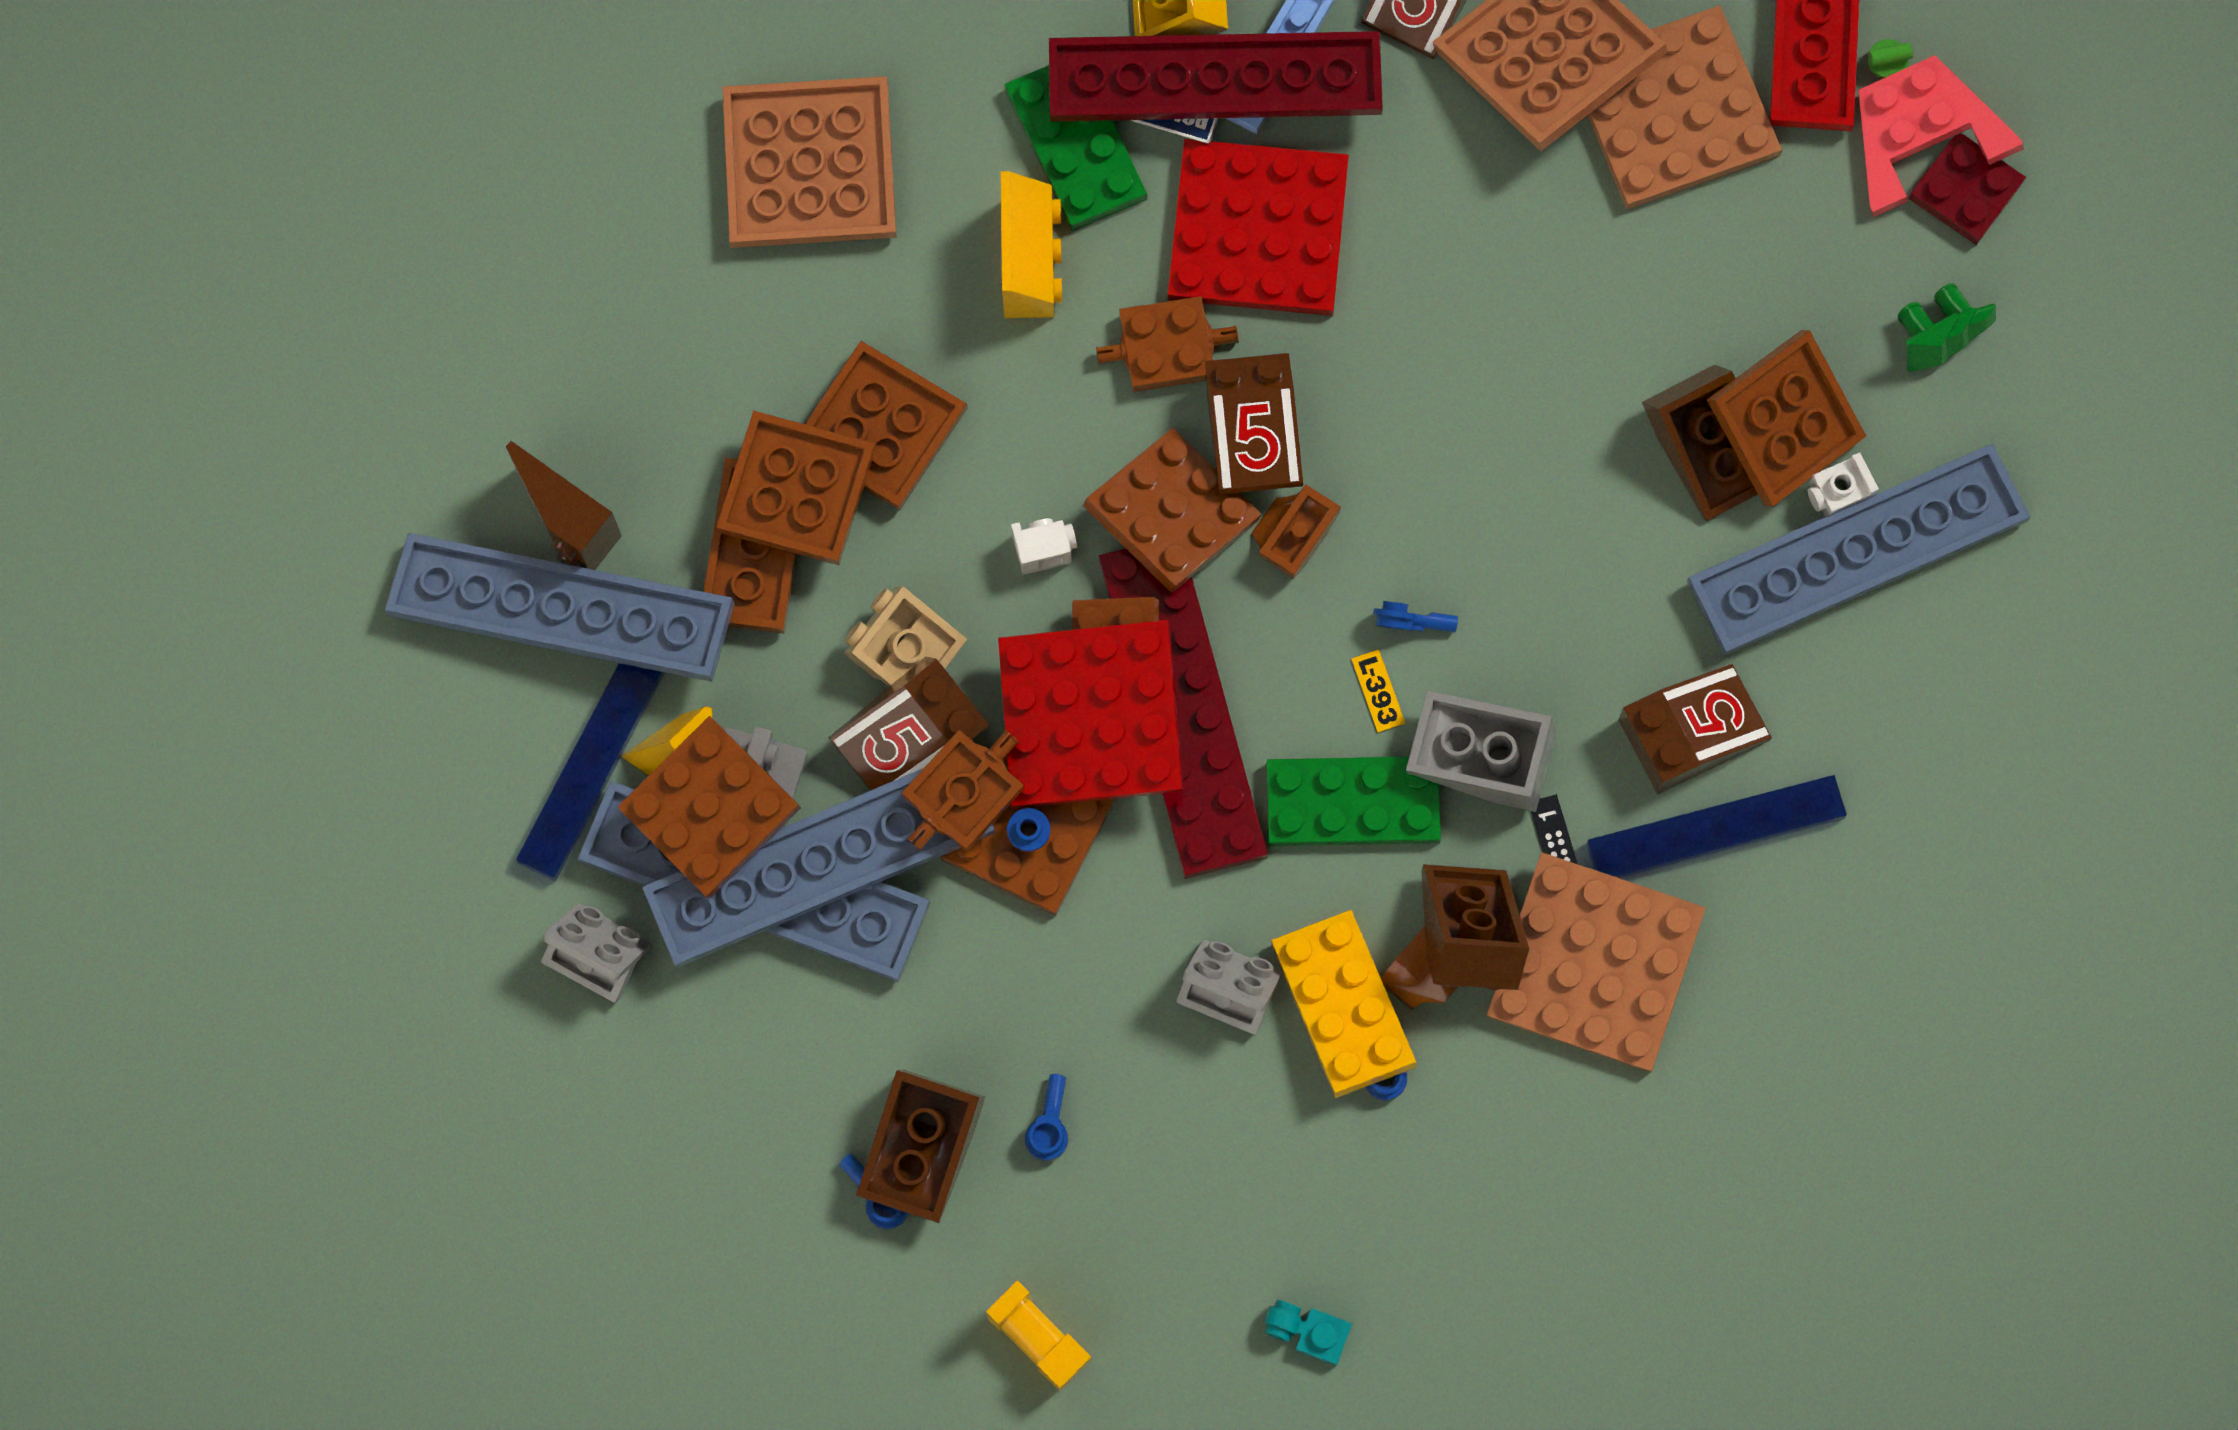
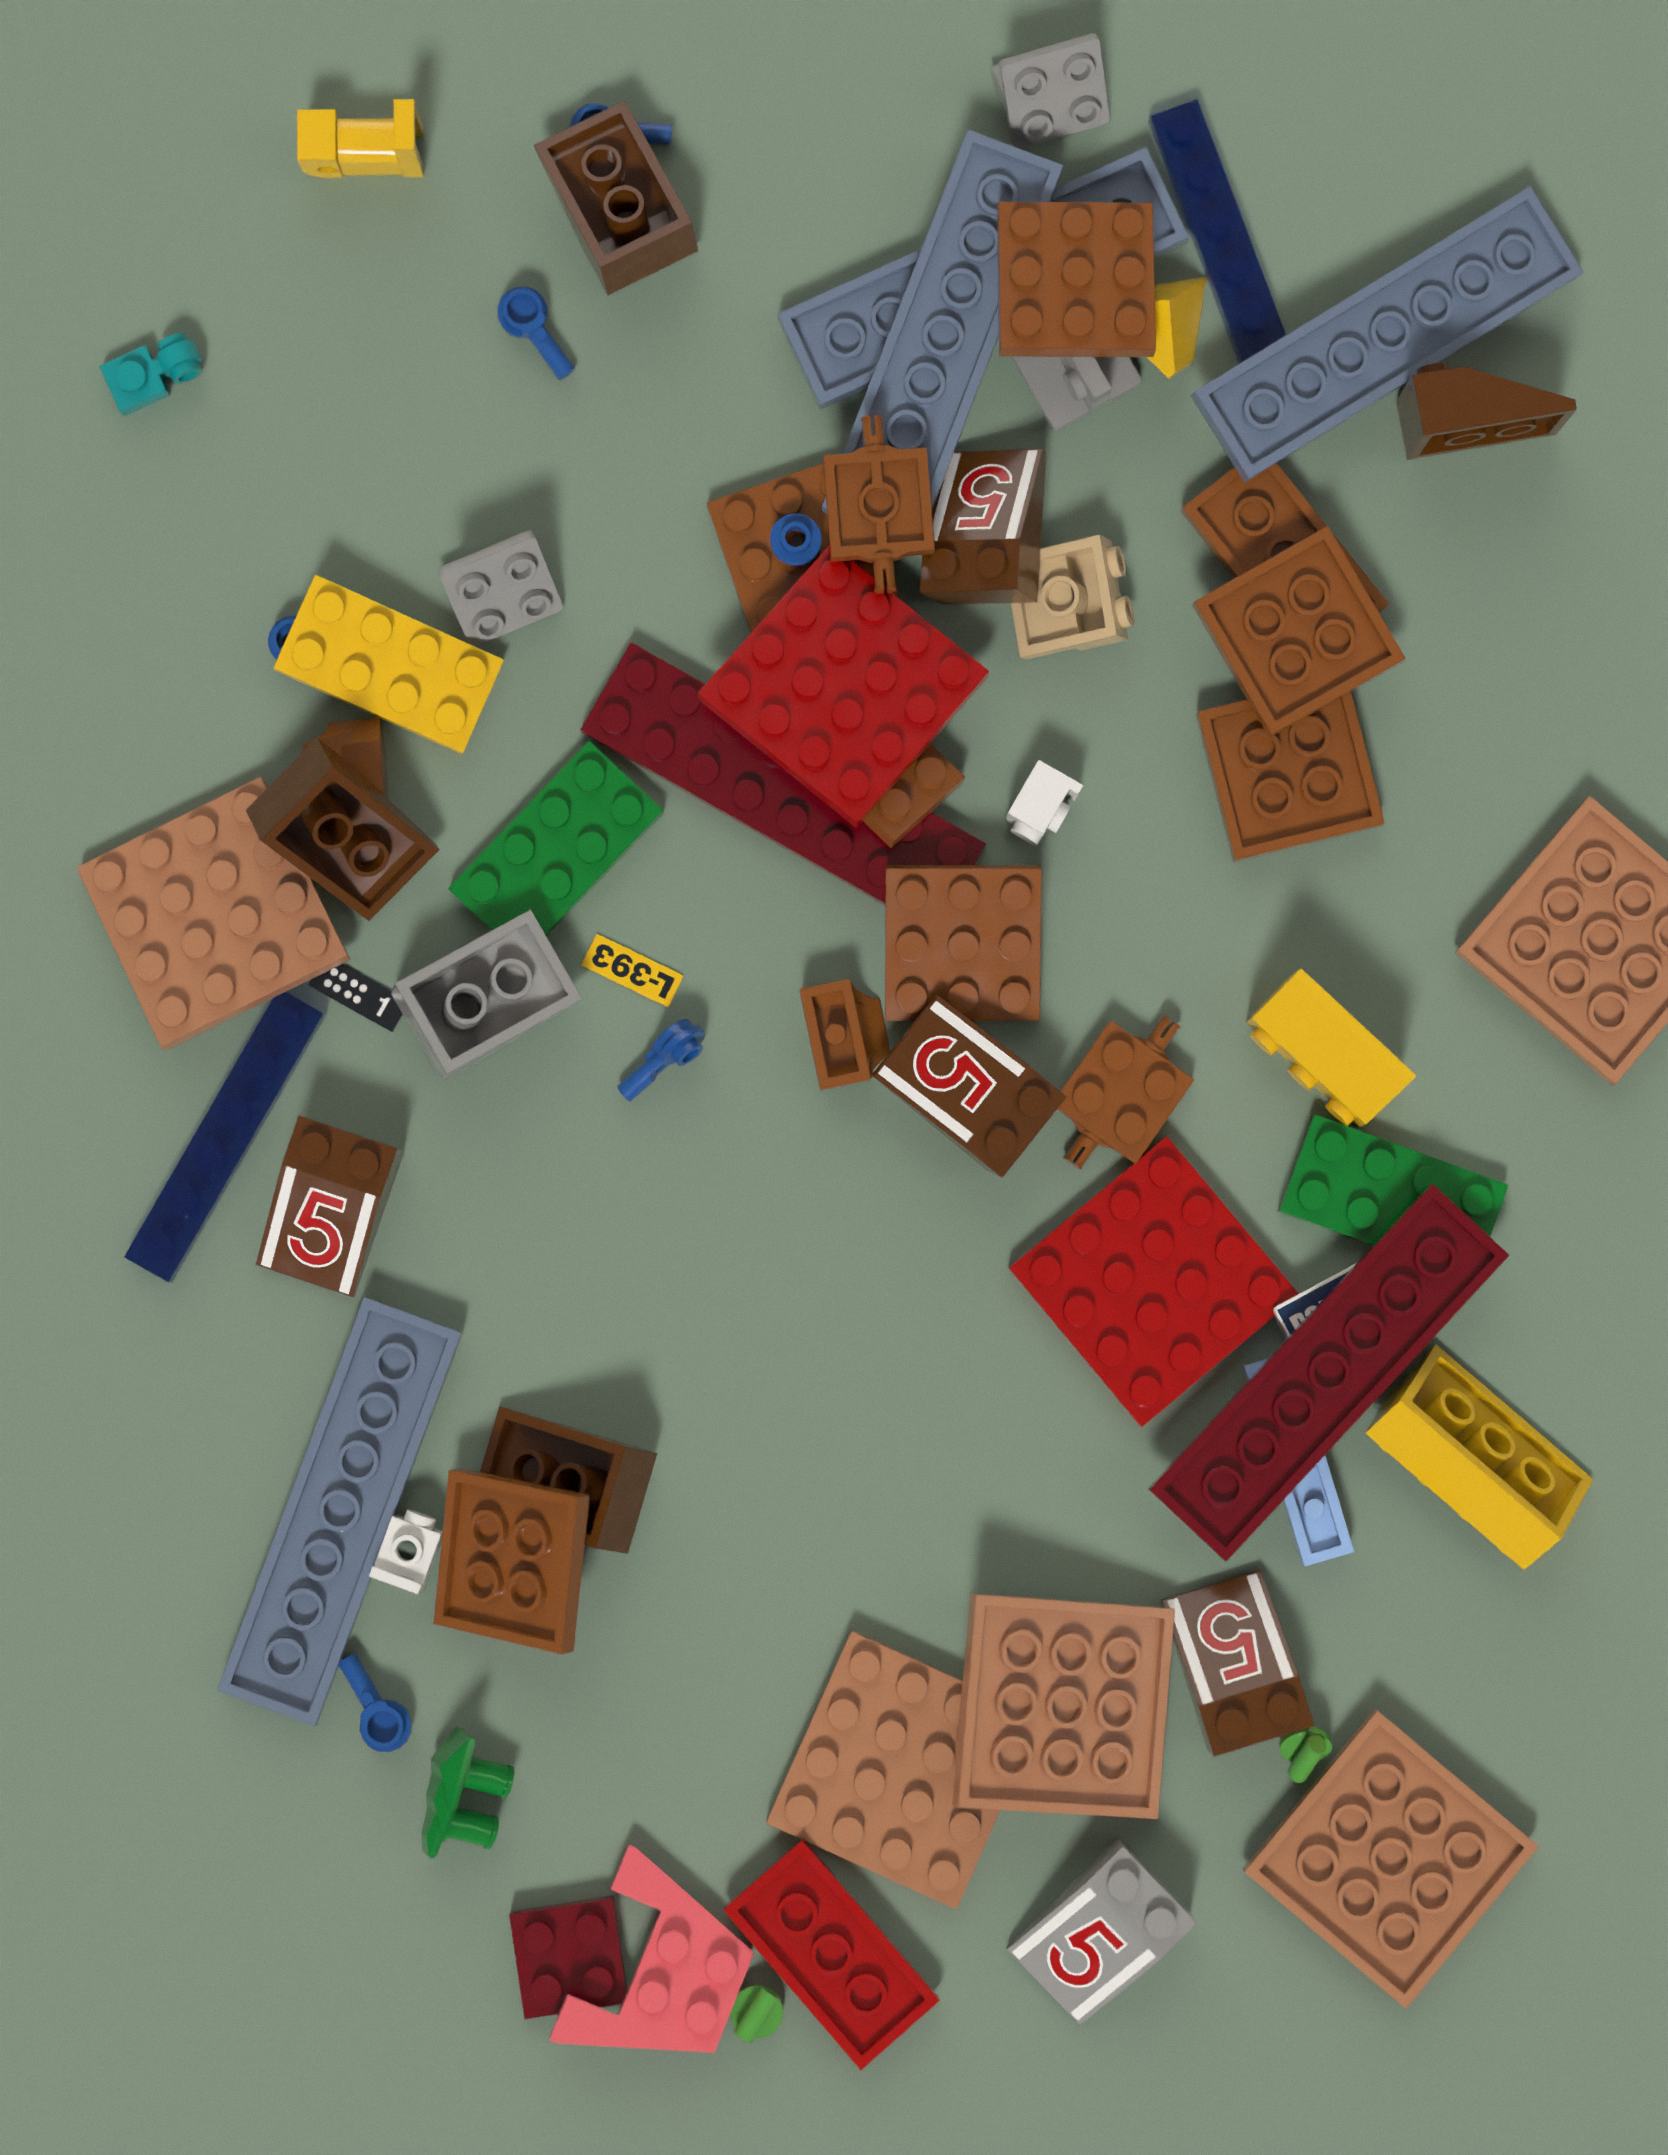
camera: 130 degrees right, 10 degrees up
(1949, 410) = (383, 1723): none -> blue plate

